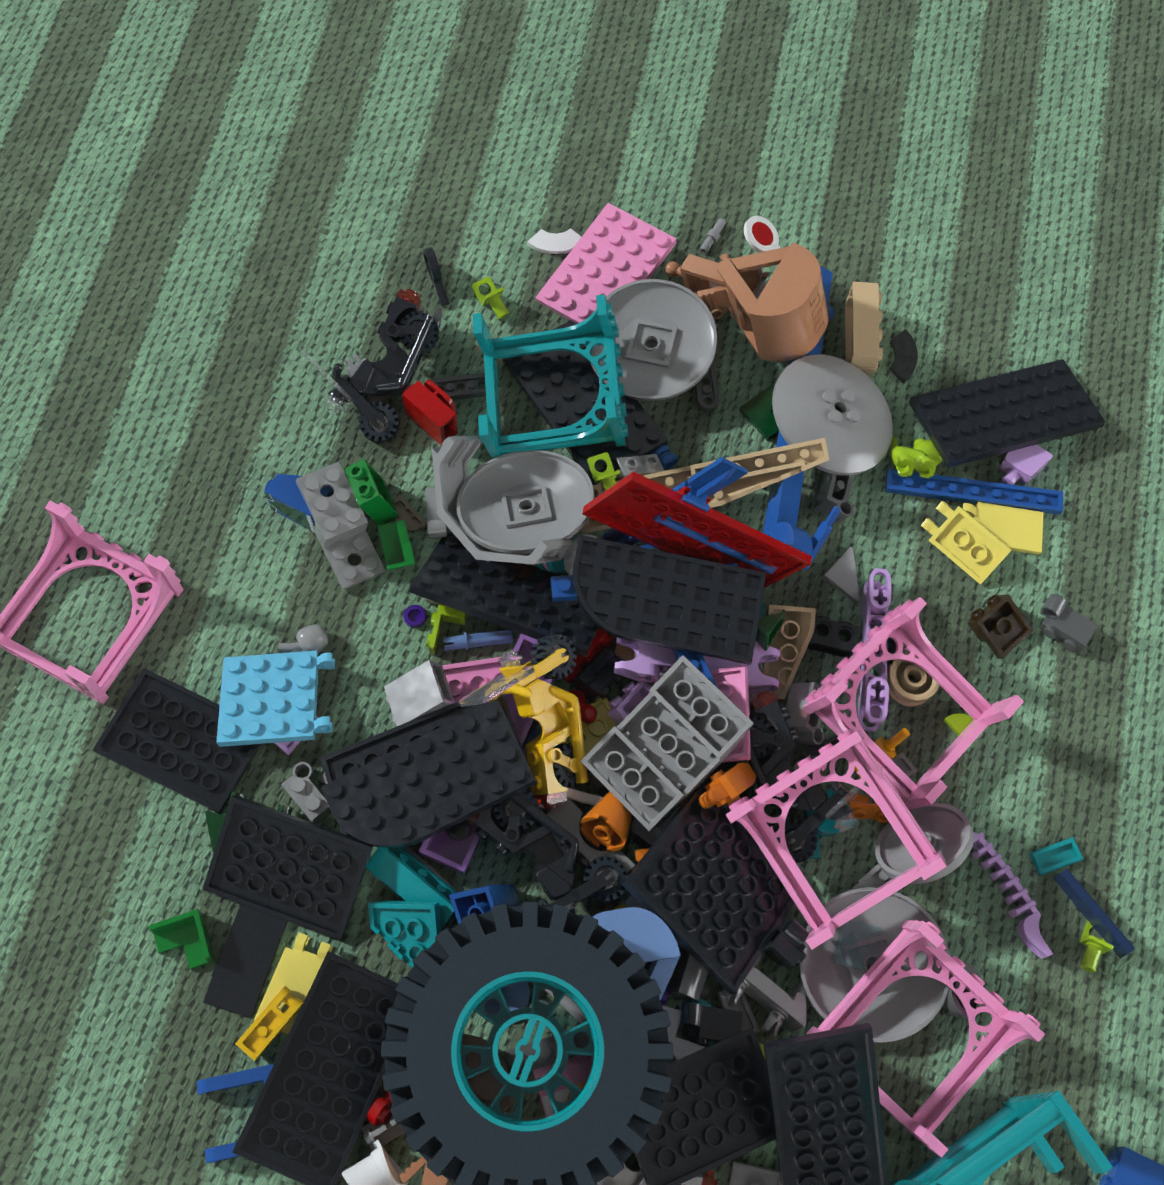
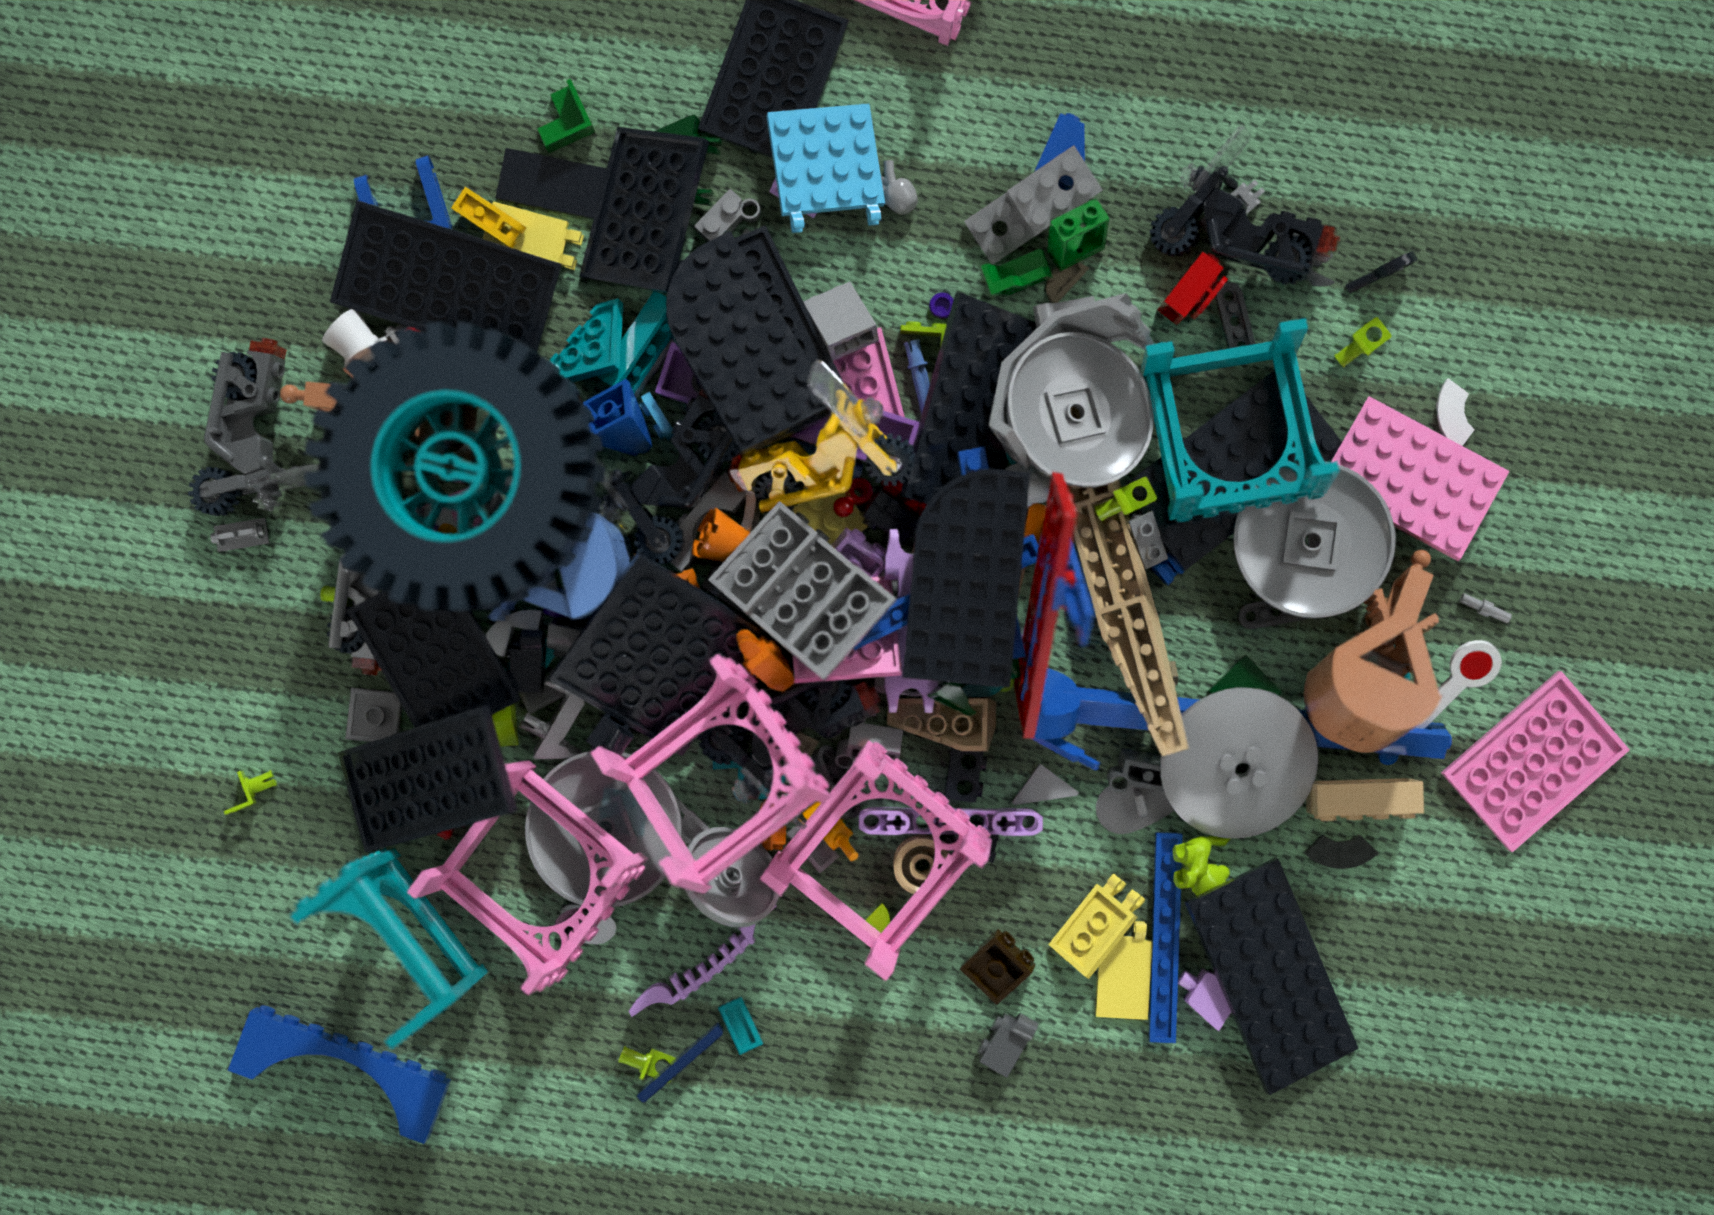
camera: 90 degrees right, 20 degrees up
(495, 872) = (651, 407): none -> medium azure plate
(835, 215) = (1535, 761): none -> bright pink plate
(868, 509) = (1131, 809): none -> light grey shield

